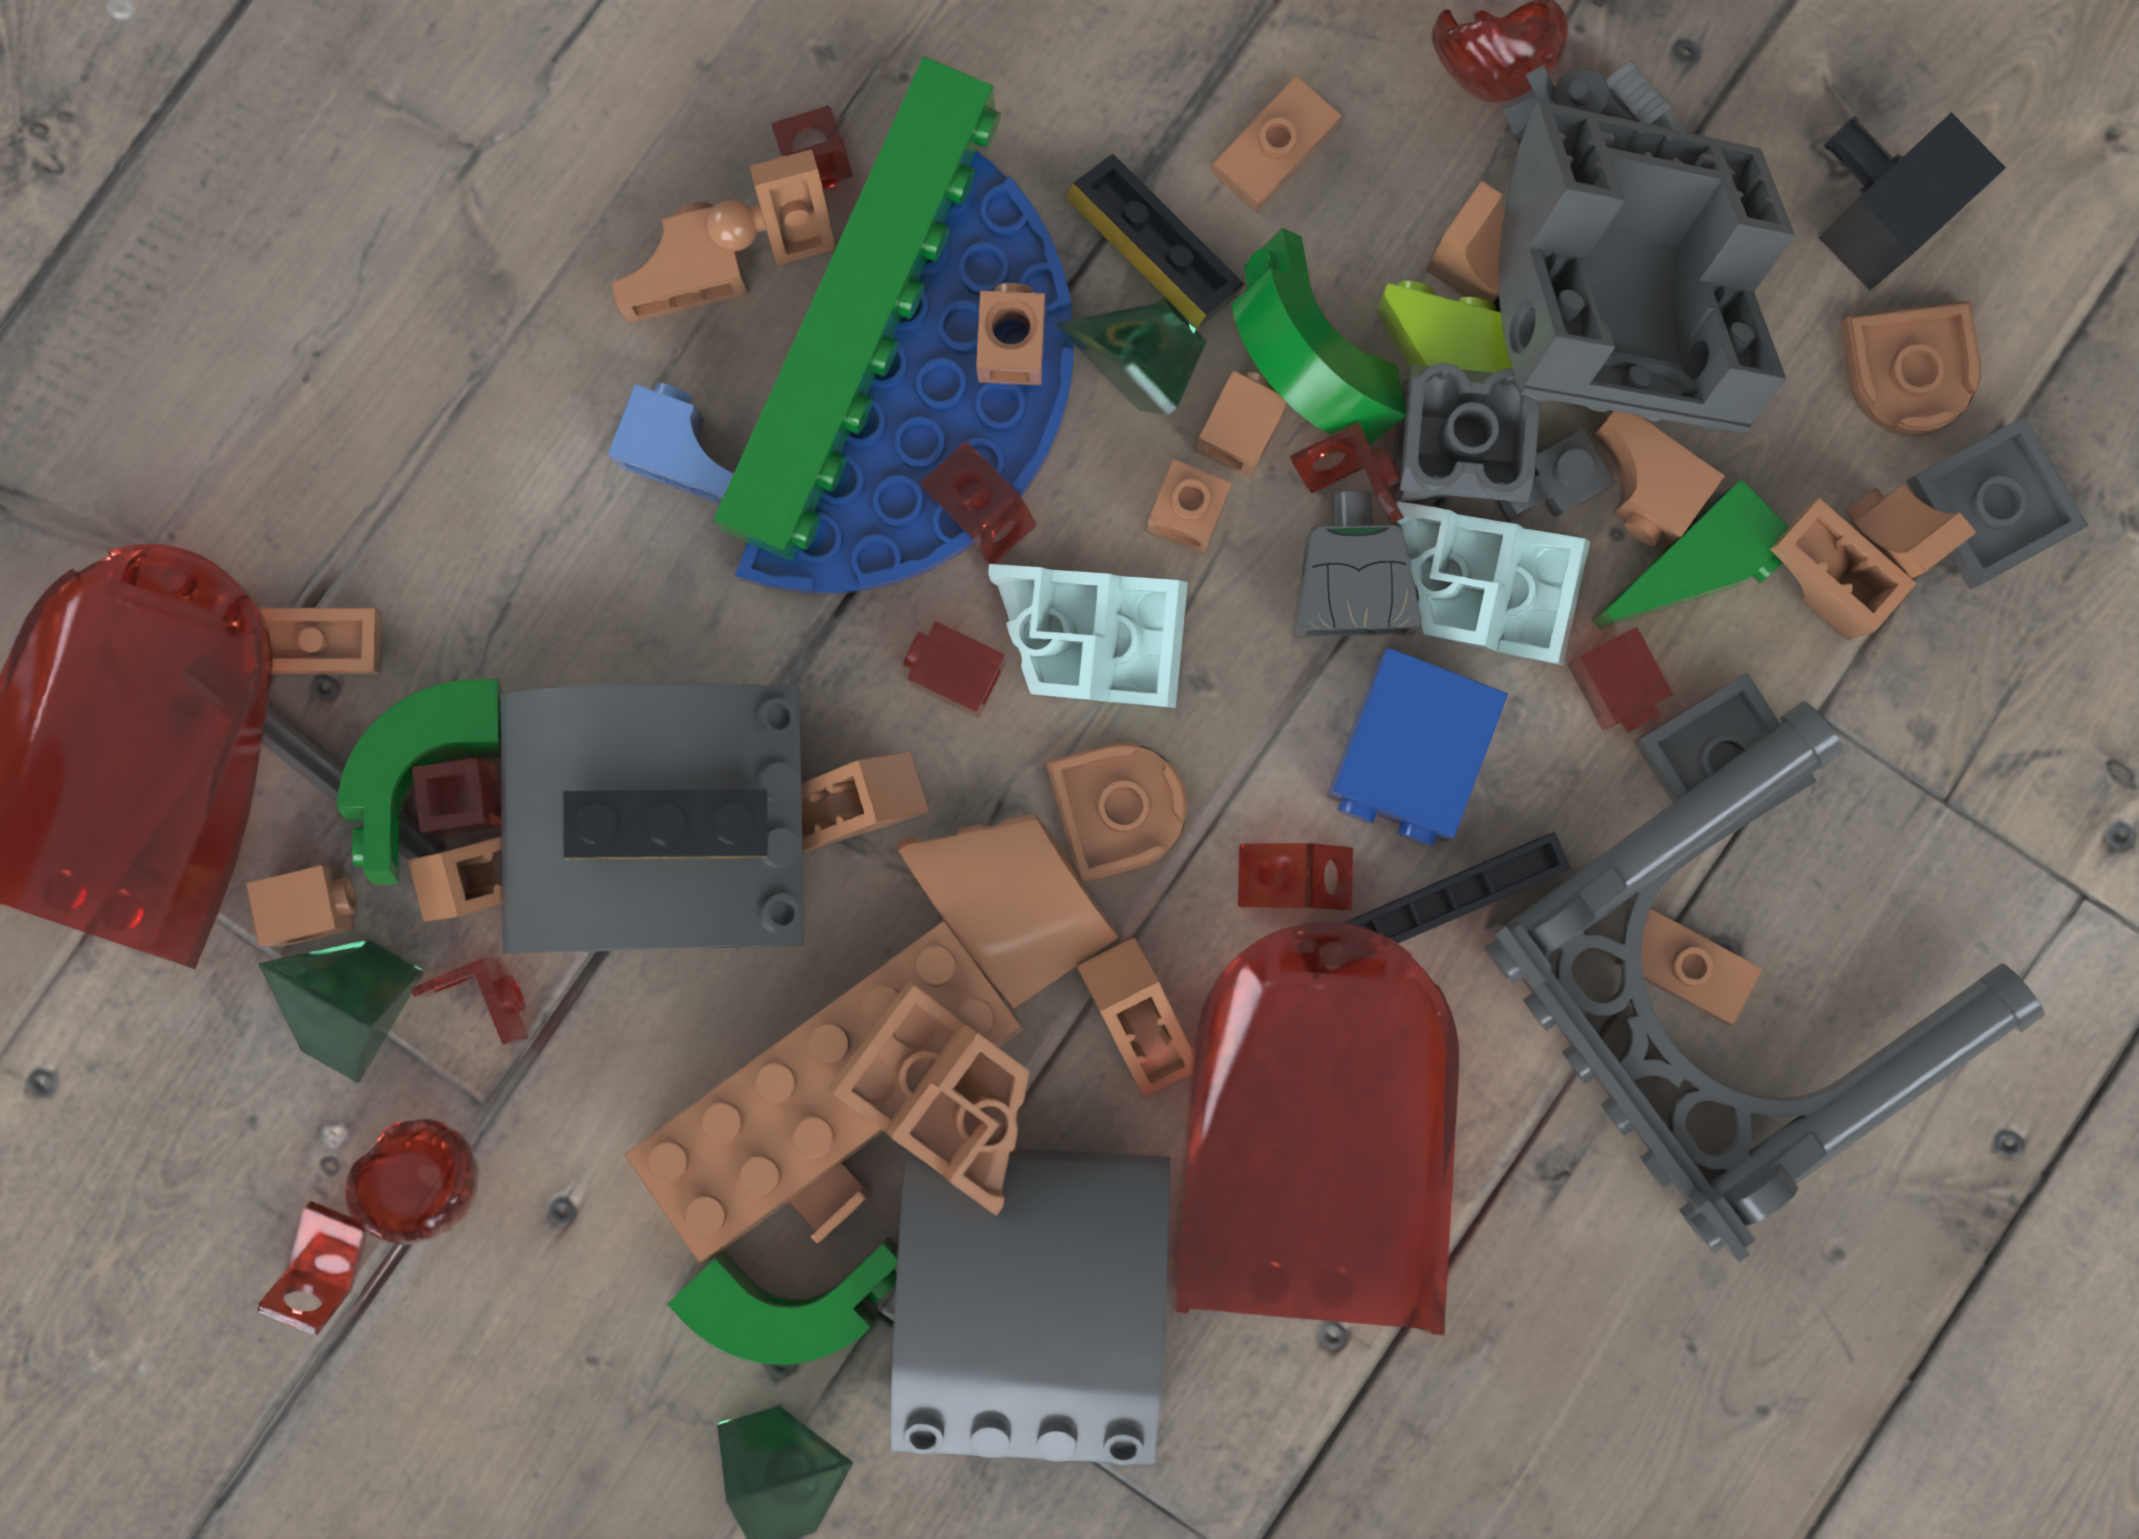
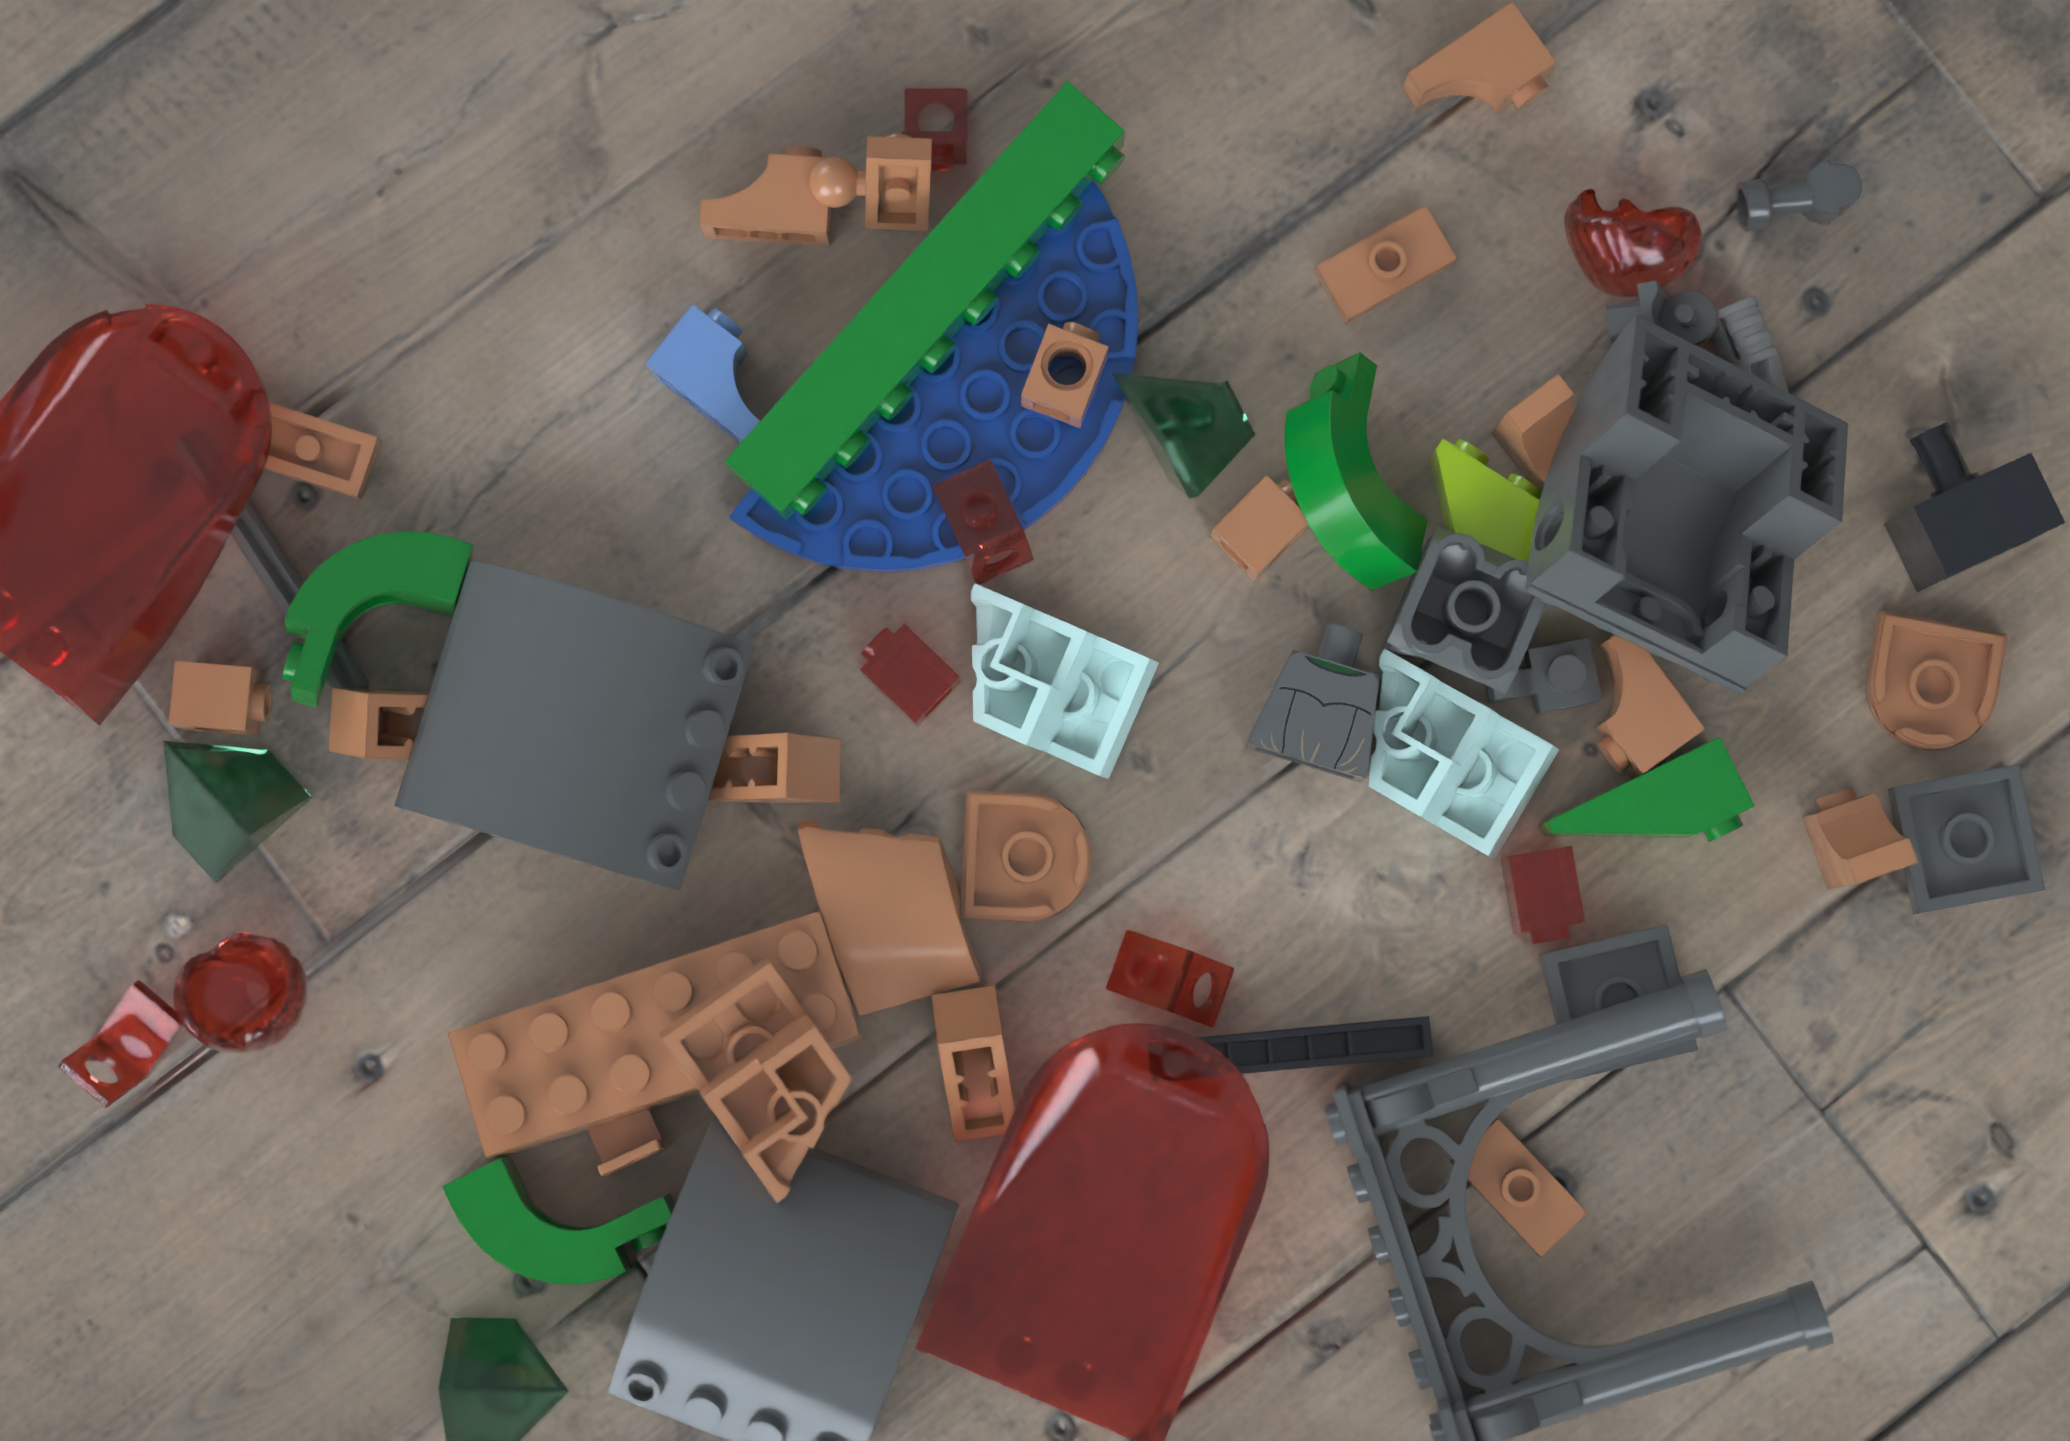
camera: 20 degrees right, 0 degrees up
(457, 797) = (398, 644): clear red brick -> none
(500, 994) = (378, 840): clear red bracket -> none
(665, 824) = (587, 736): black plate -> none
(1154, 240) = (1235, 322): black plate -> none
(1188, 506) = (1182, 591): nougat brick -> none
(1358, 456) = (1364, 594): clear red bracket -> none
(1416, 747) = (1324, 893): blue brick -> none
(1841, 571) = (1785, 855): nougat arch -> none

